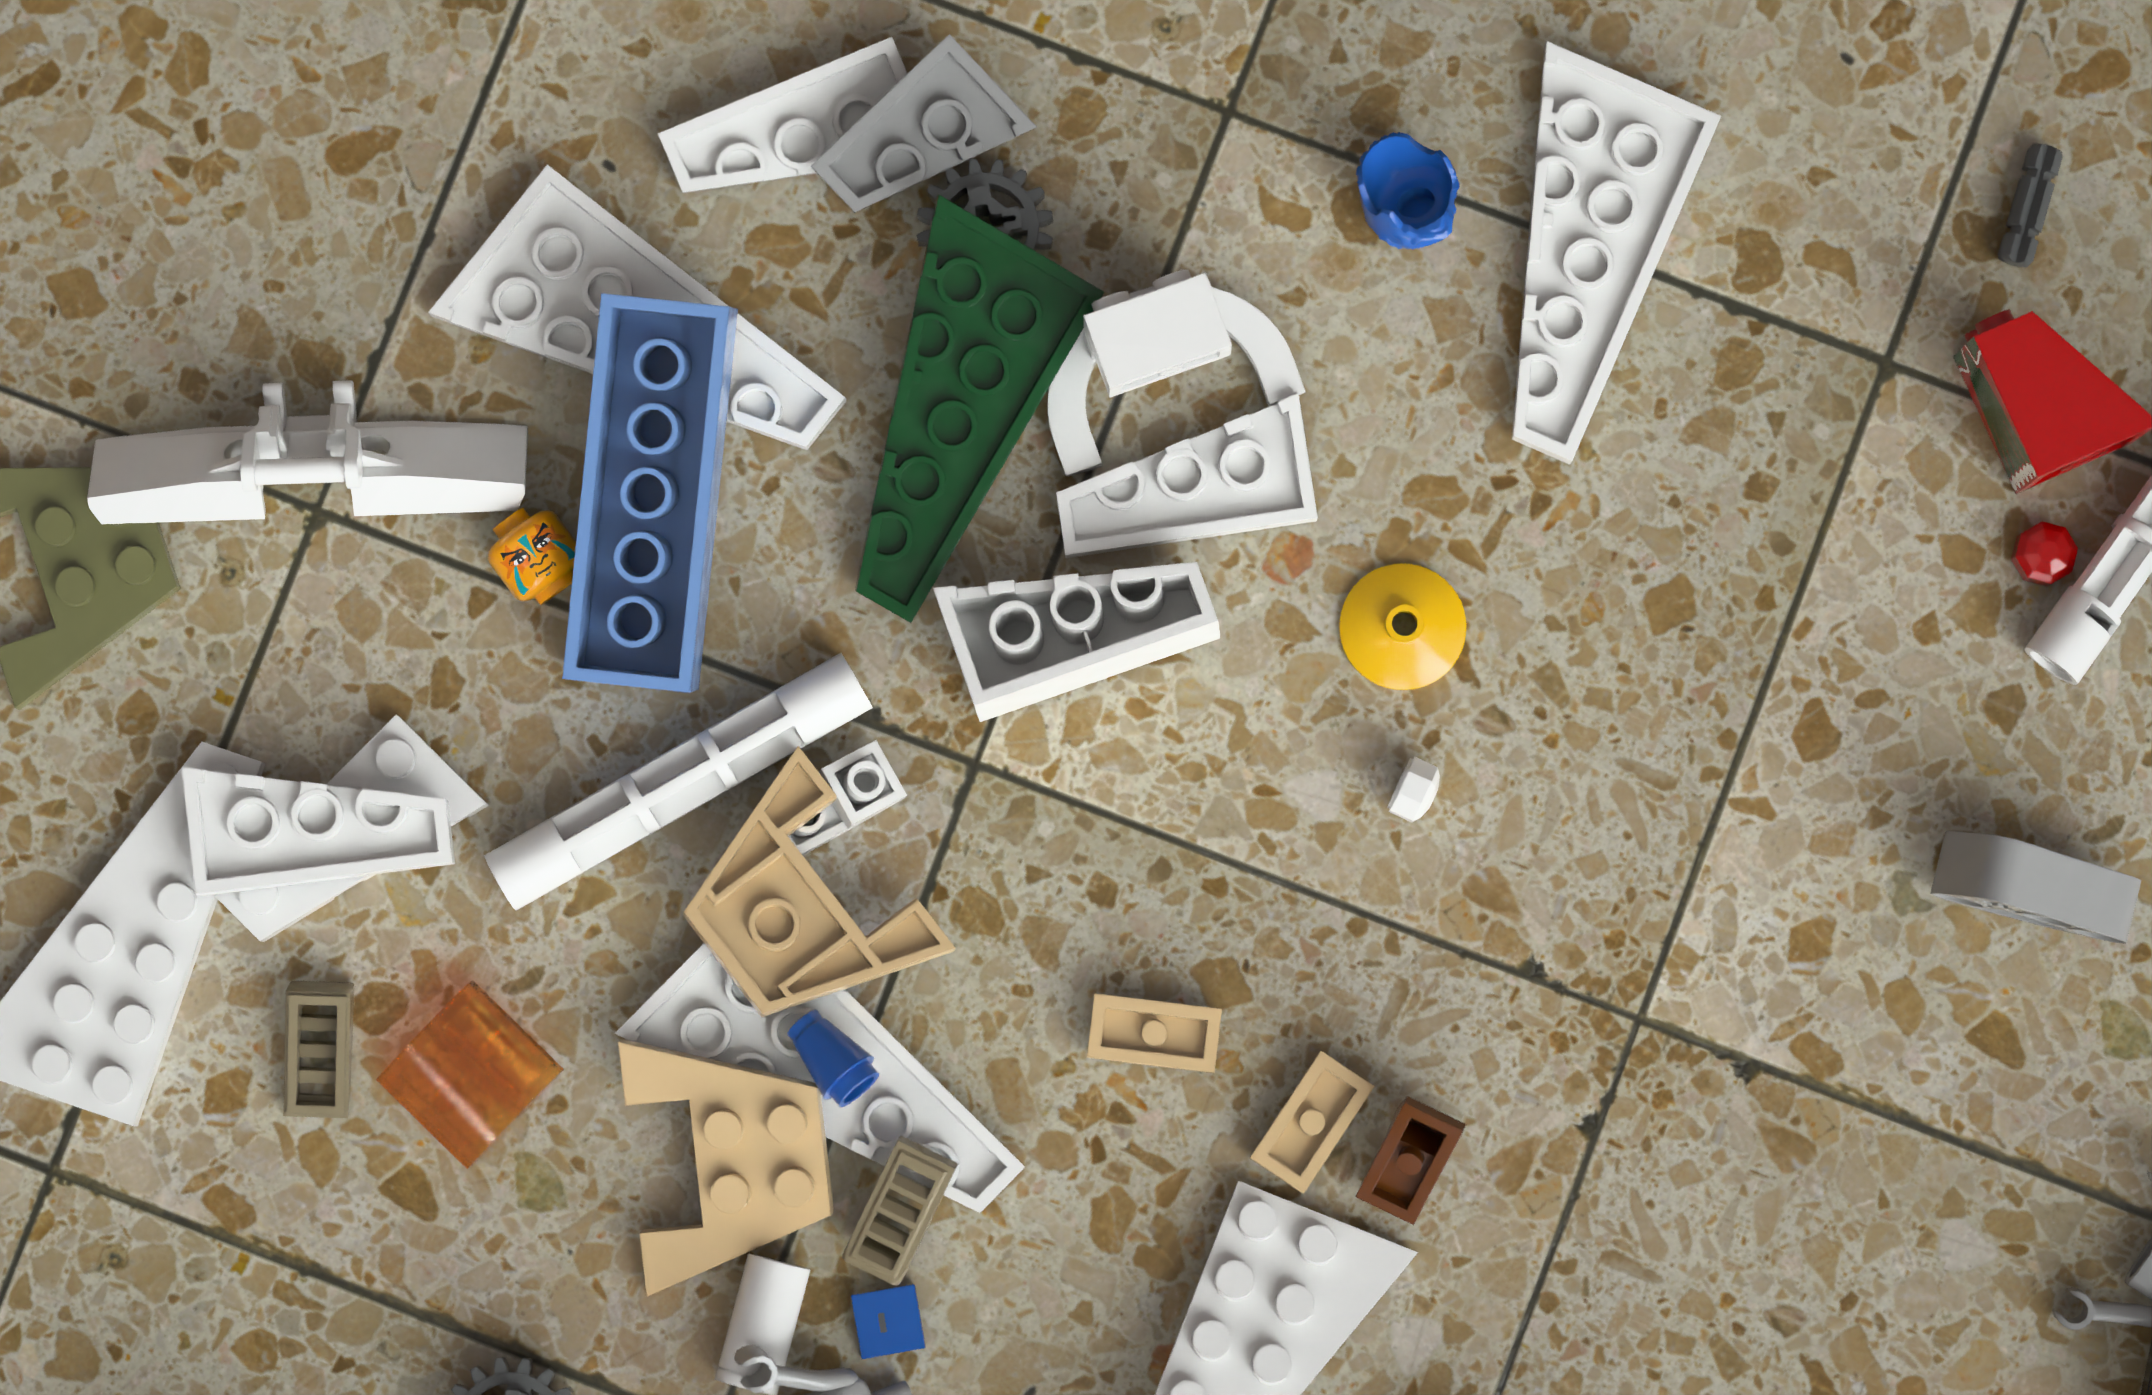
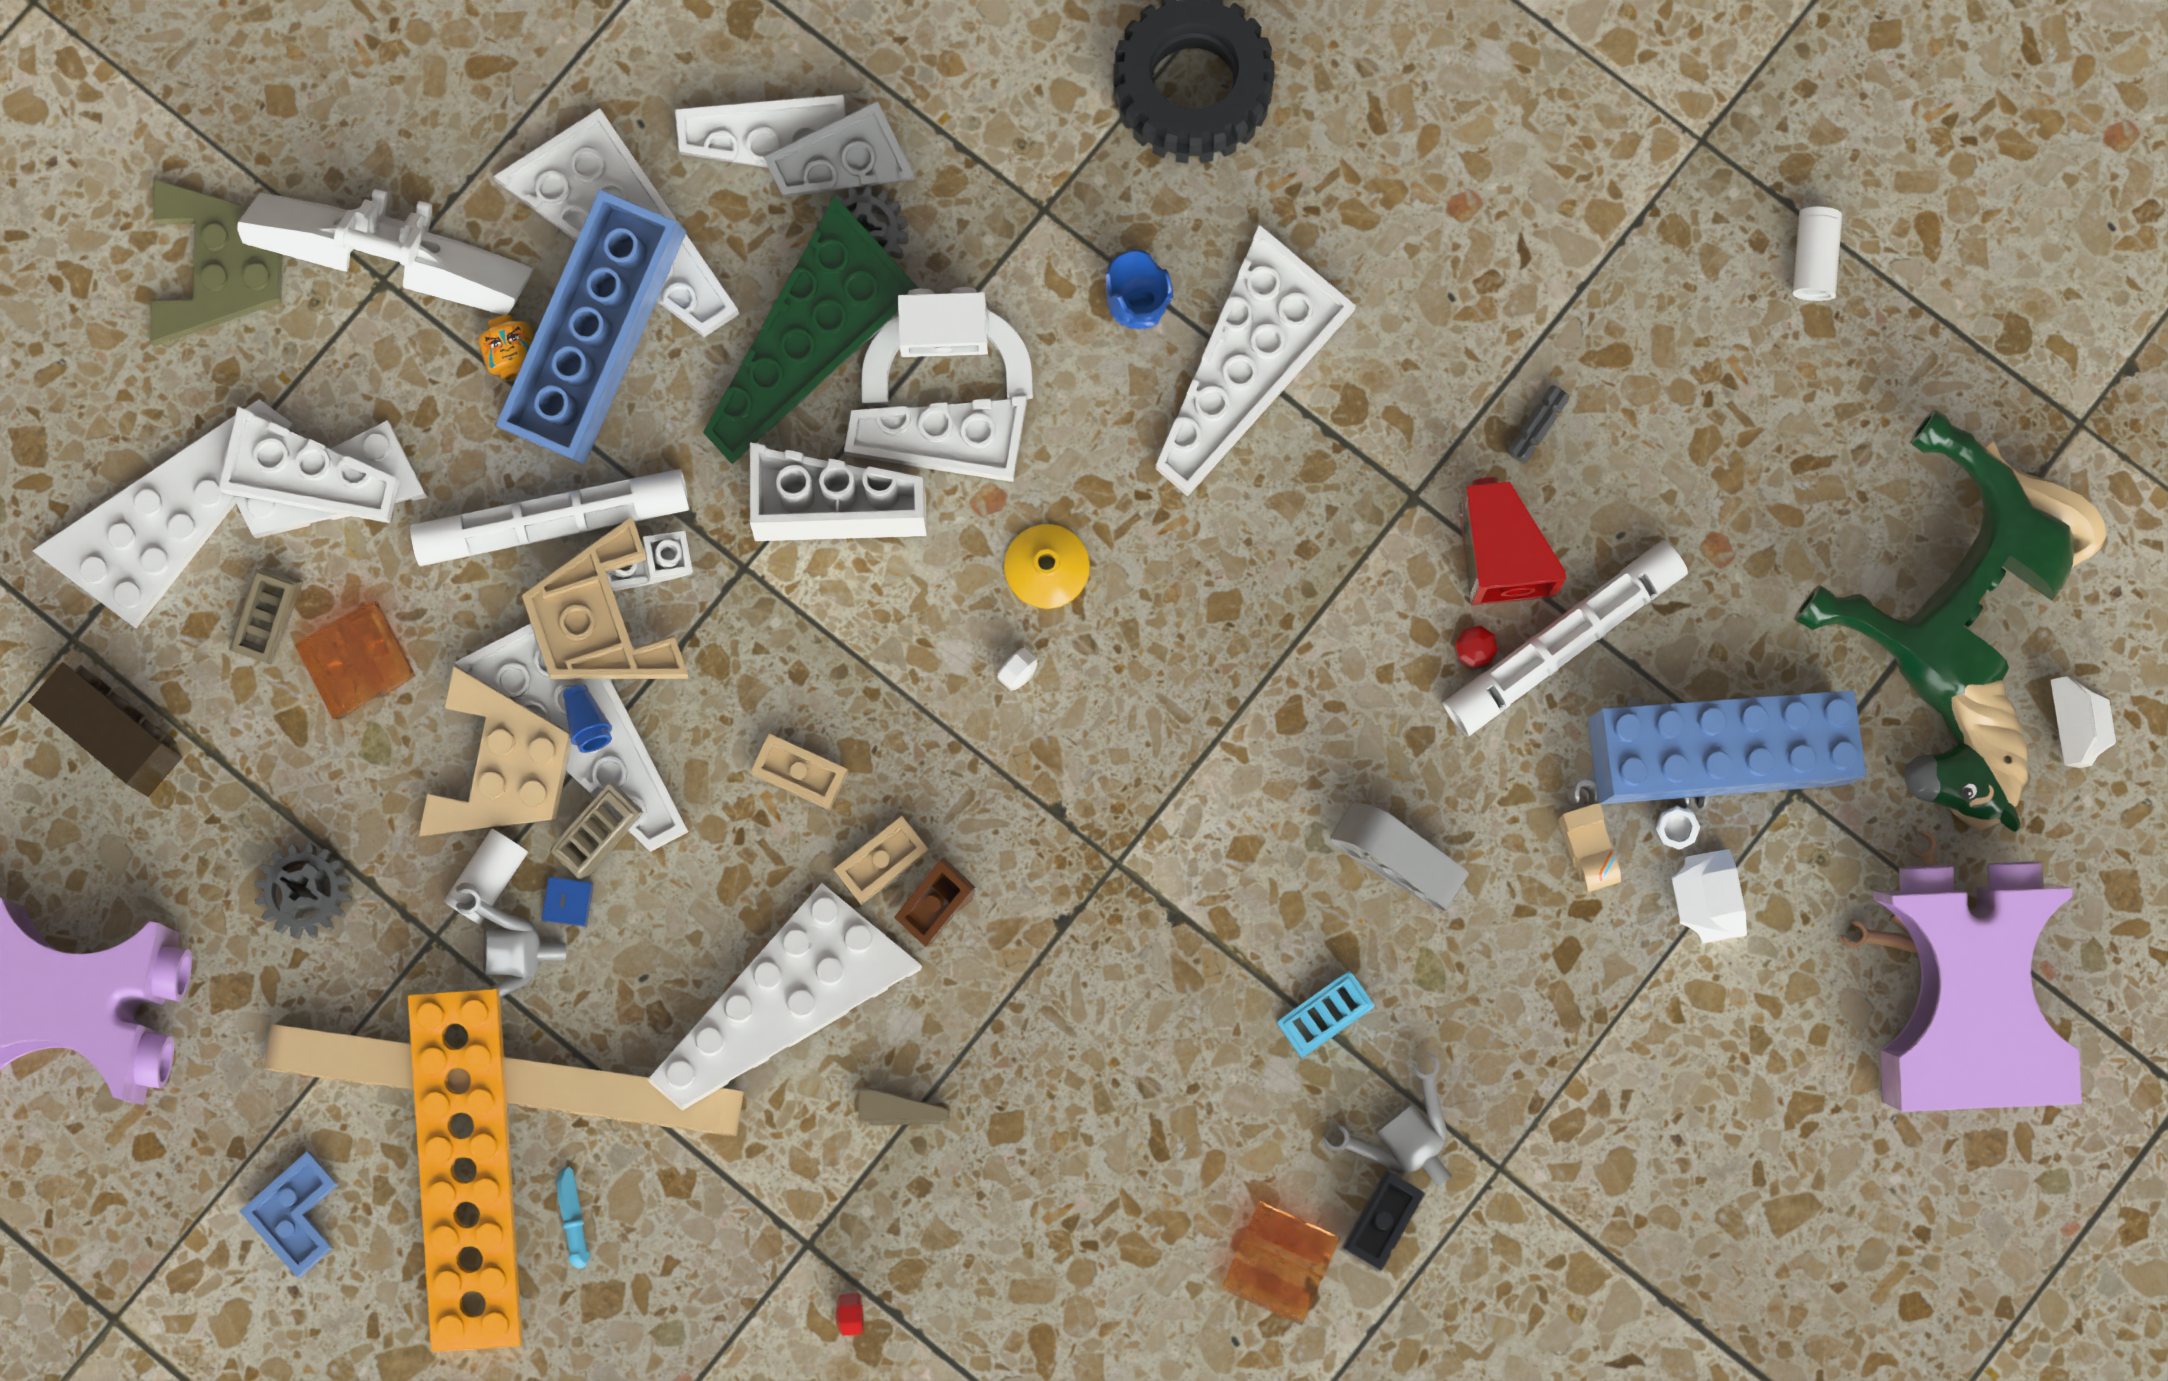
camera: 20 degrees right, 5 degrees down
(154, 1287) = (107, 727): none -> dark brown piece
(2036, 1134) = (1355, 991): none -> medium azure slope

